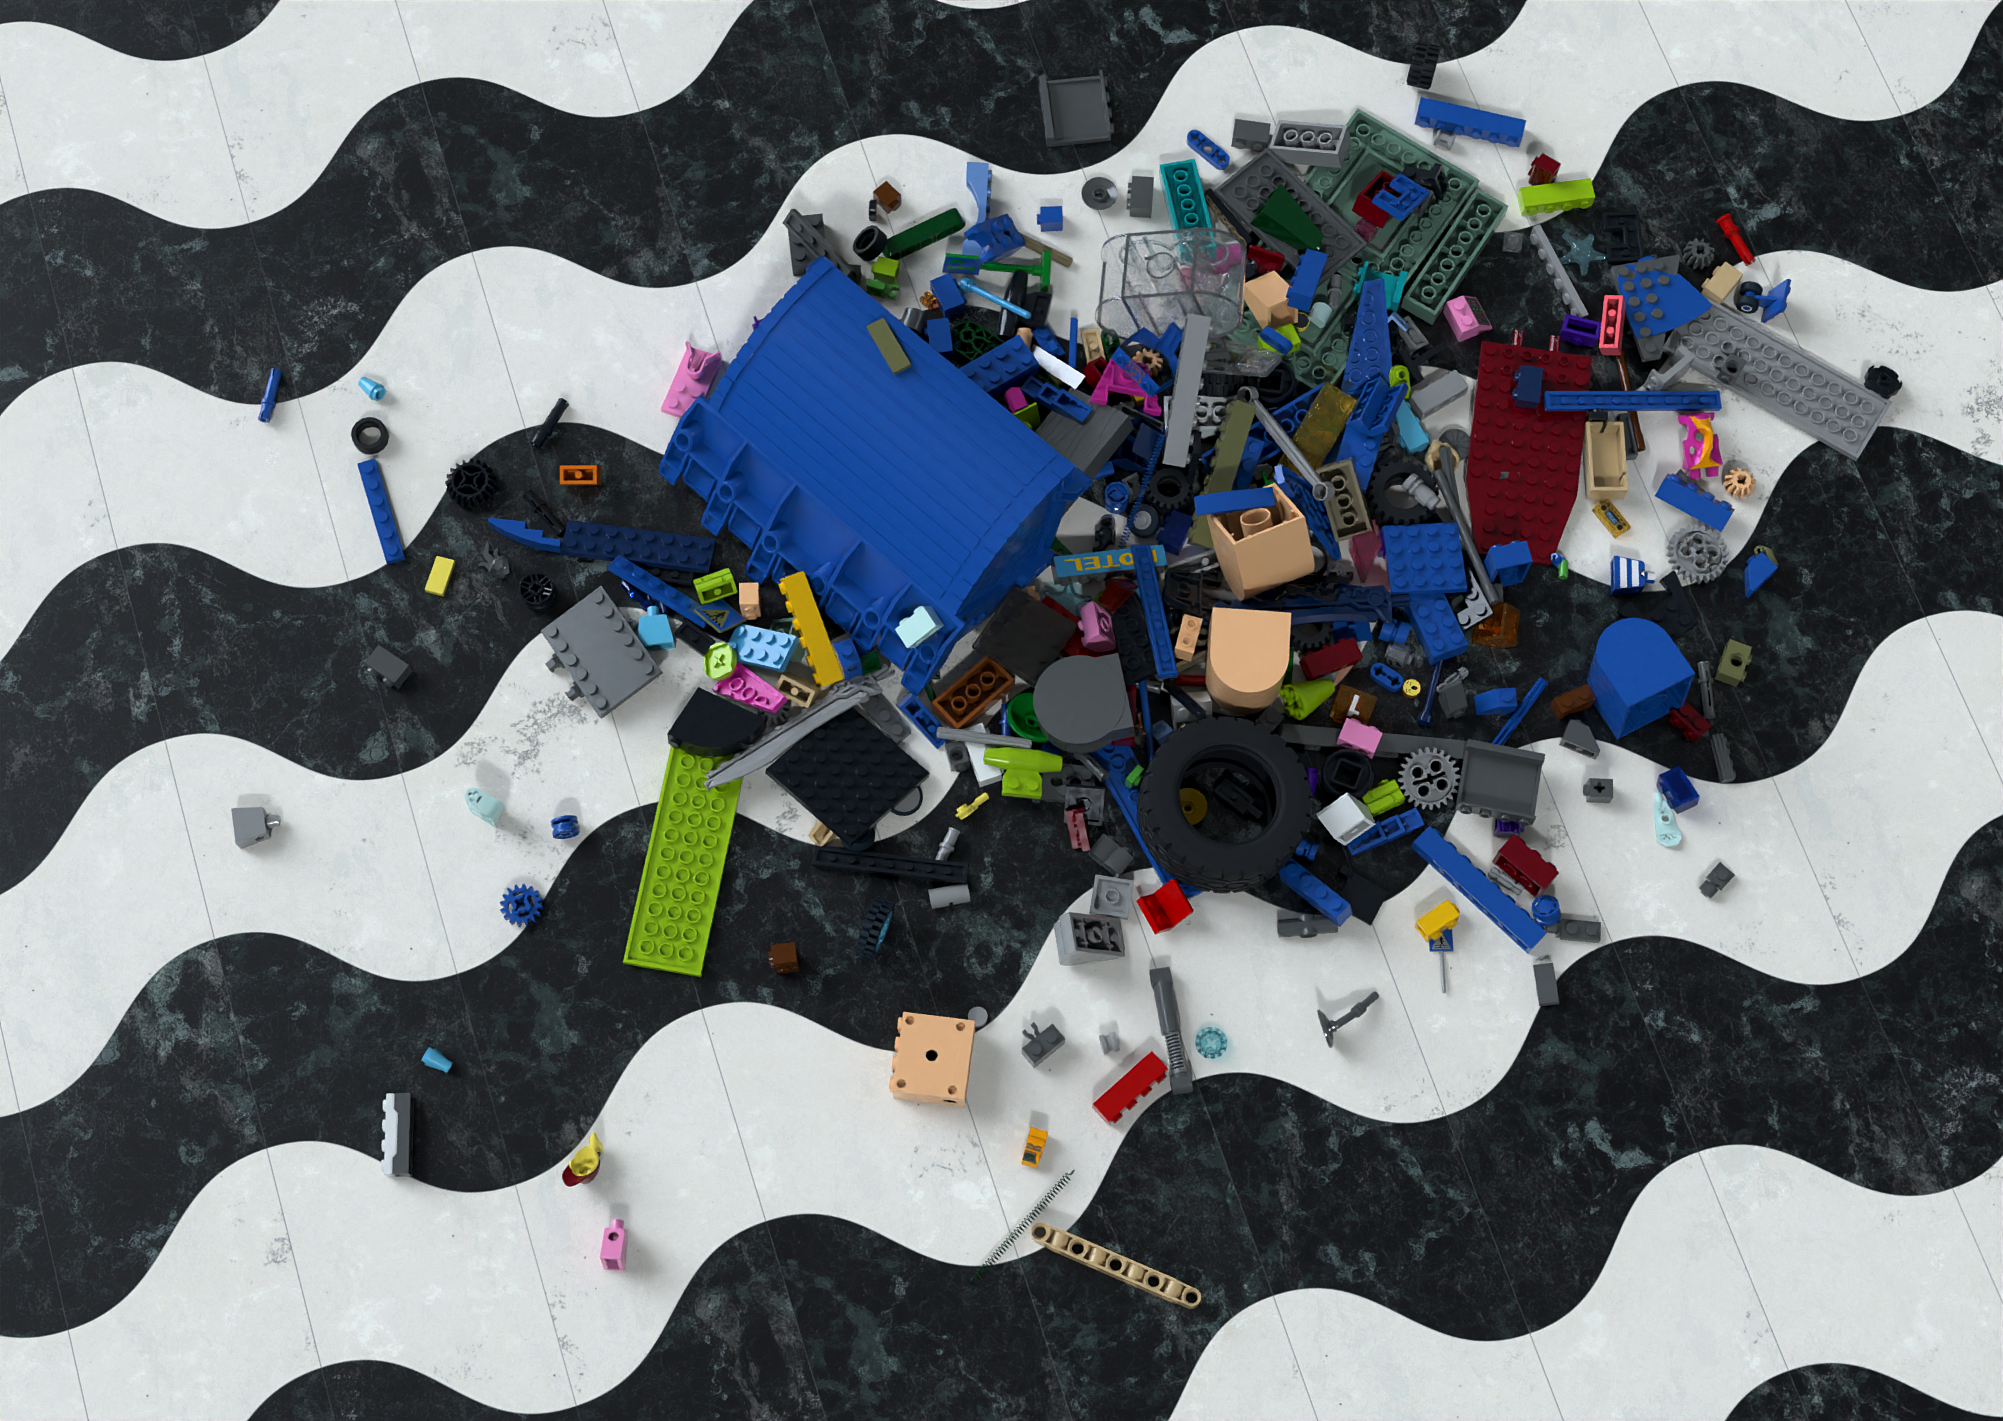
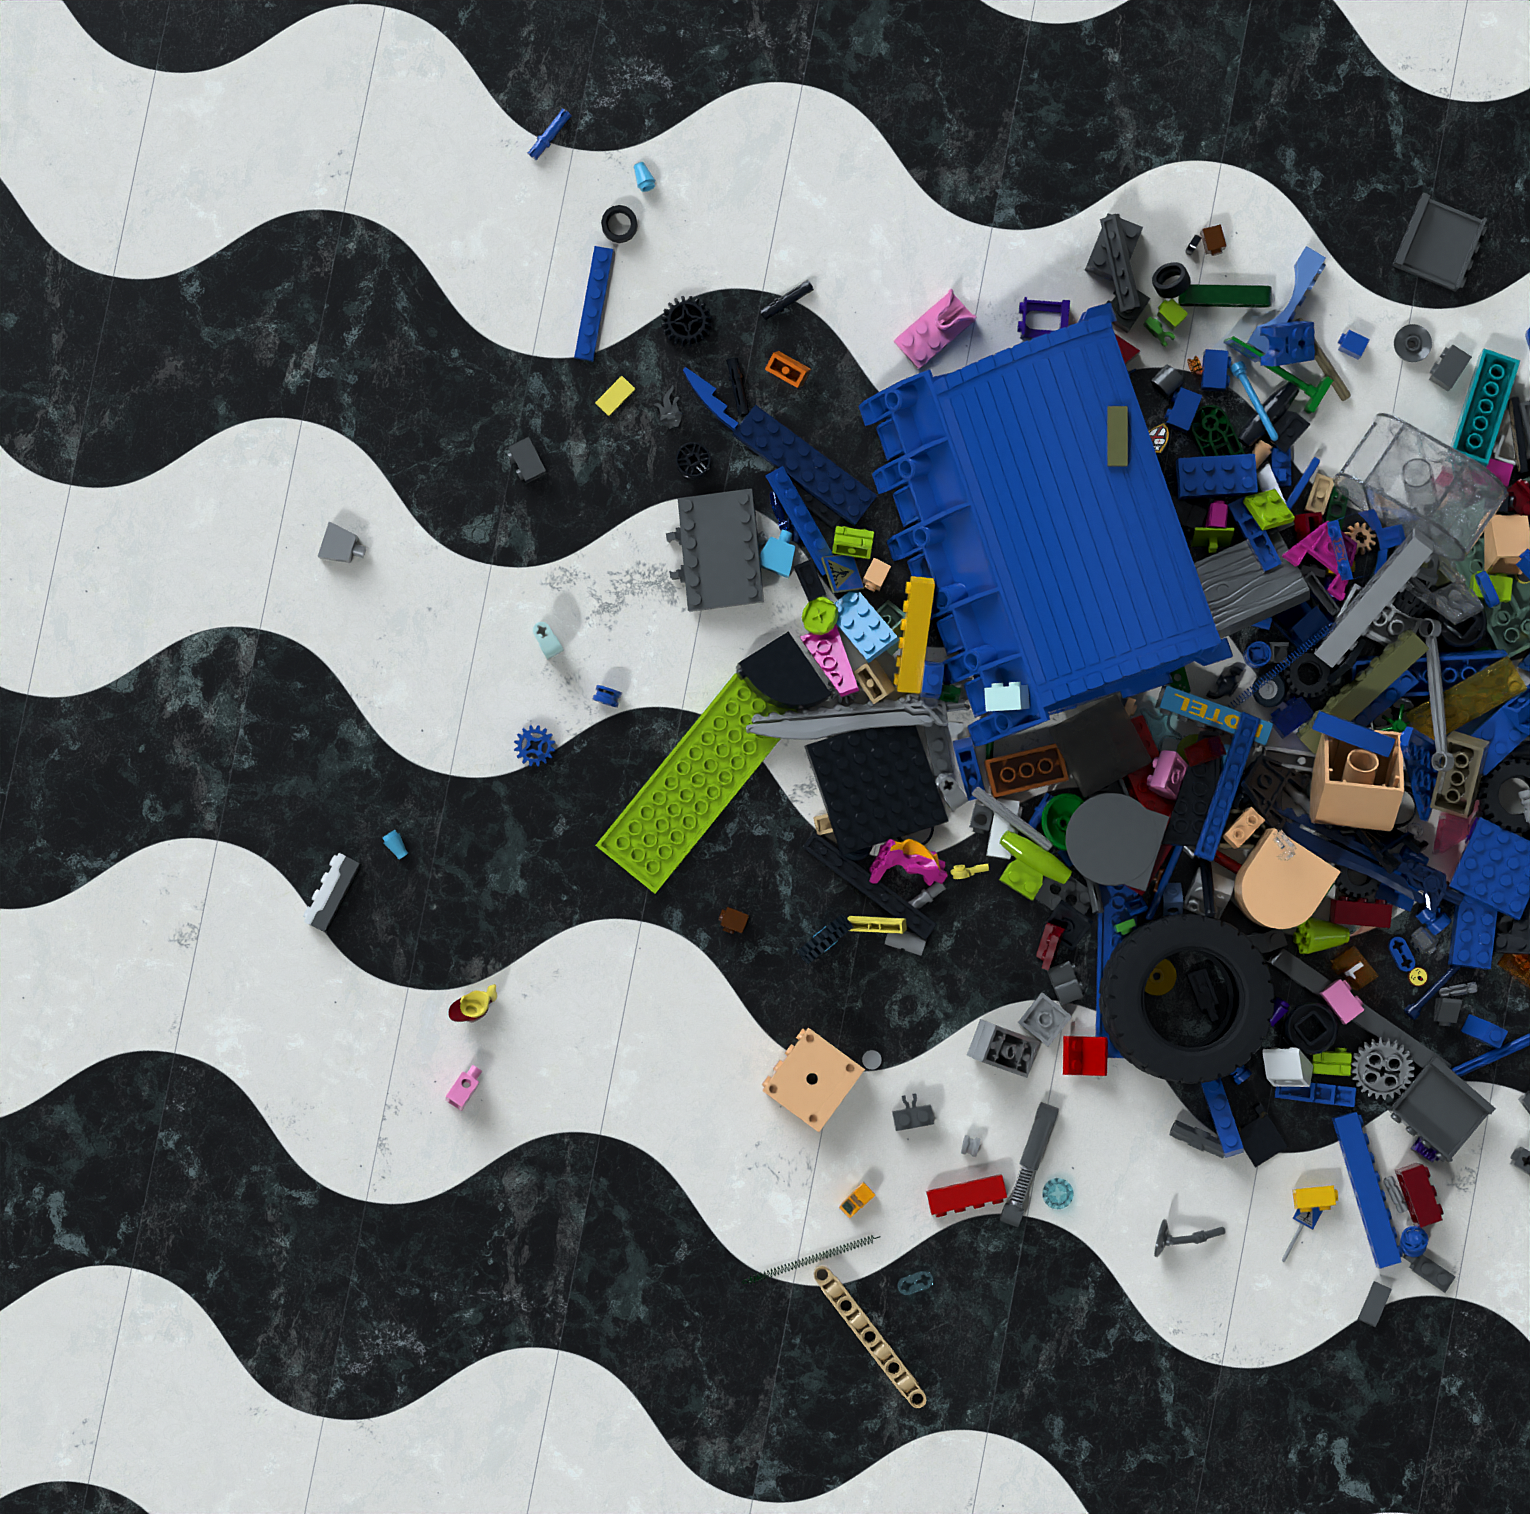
camera: 30 degrees right, 15 degrees up
(891, 697) = (953, 730): none -> white sticker
(912, 814) = (914, 859): none -> dark pink hips
(917, 891) = (878, 924): none -> light yellow piece
(920, 749) = (952, 792): none -> light grey piece
(1056, 374) = (1268, 509): none -> lime plate
(1126, 1191) = (913, 1278): none -> clear light blue beam
(1135, 756) = (1136, 906): none -> blue slope
(1227, 608) = (1283, 841): none -> clear bracket

